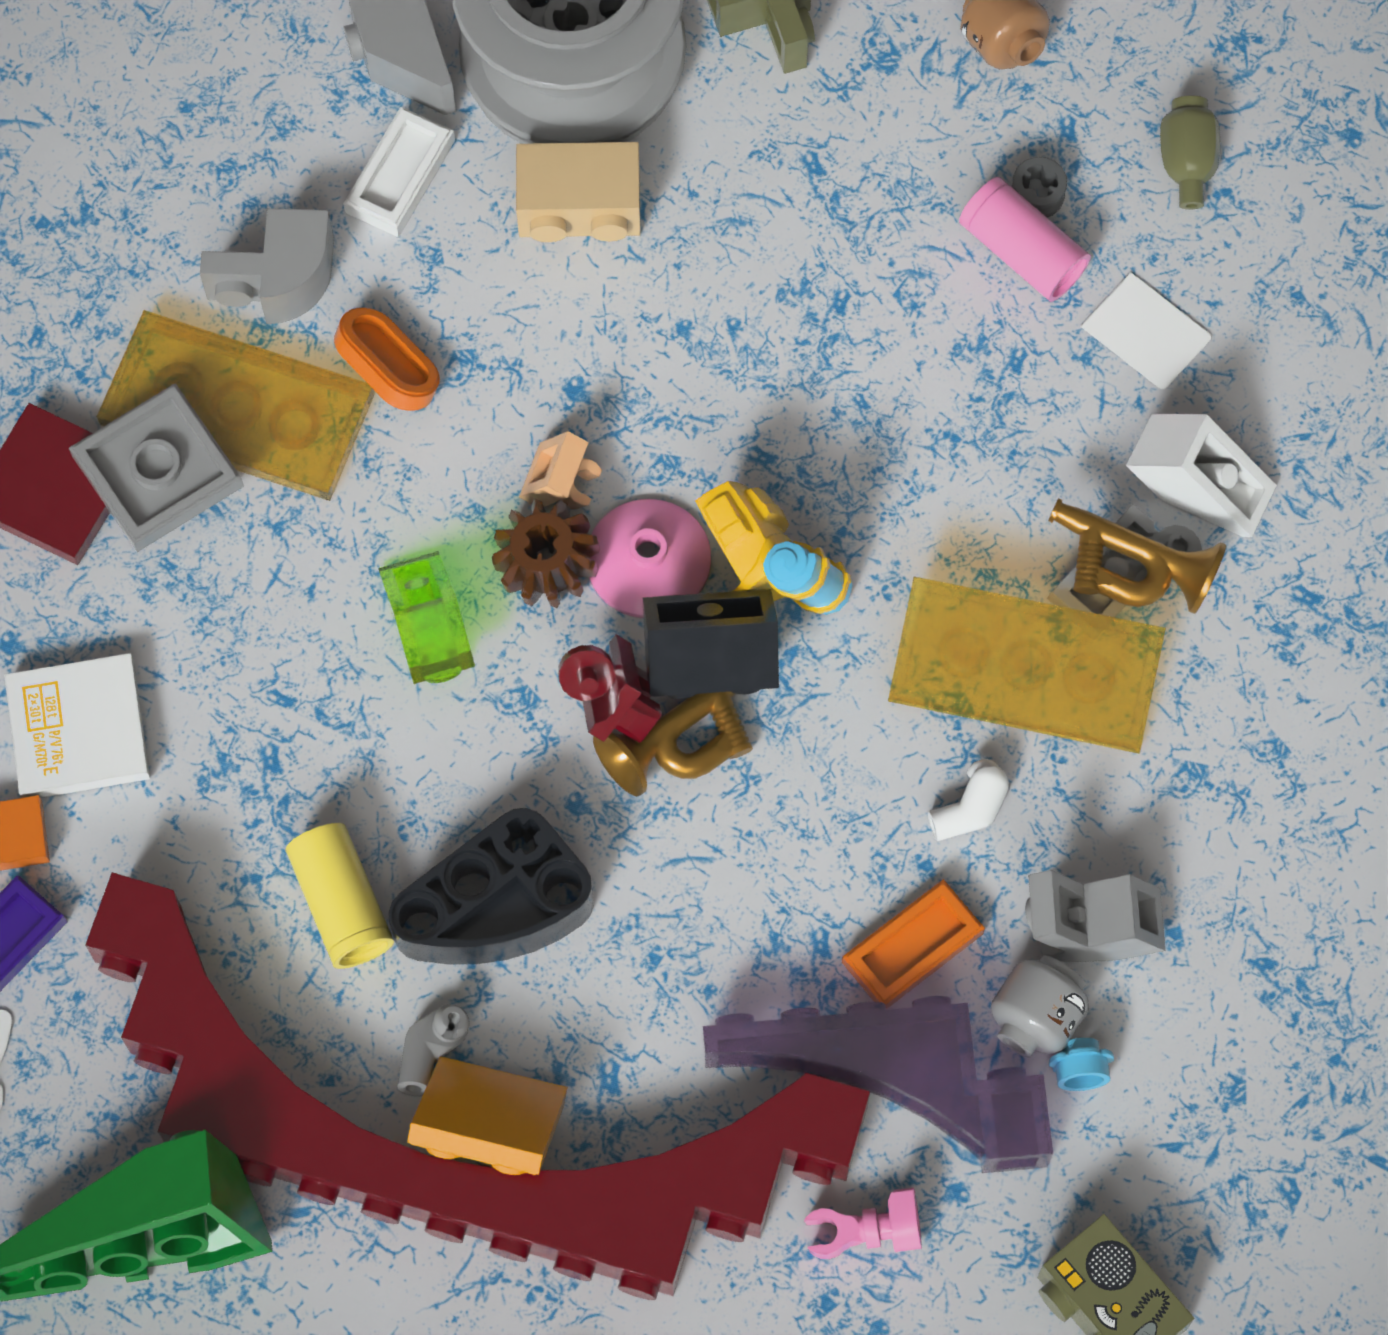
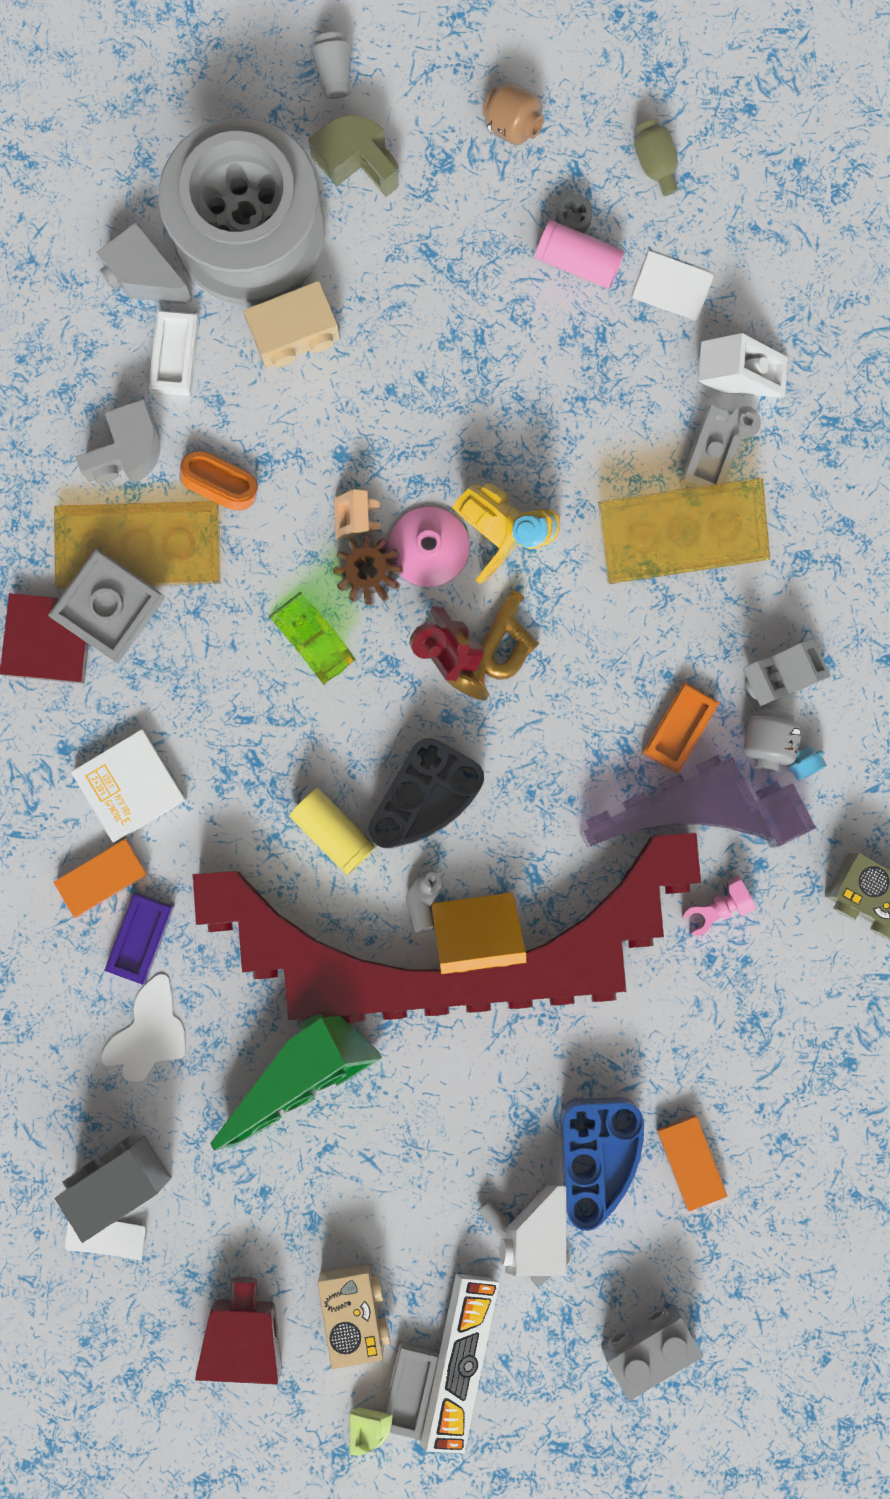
camera: 25 degrees left, 15 degrees up
(711, 643) = (495, 593): black brick -> none
(978, 804) = (687, 627): white arm -> none
(1189, 570) = (765, 435): pearl gold piece -> none

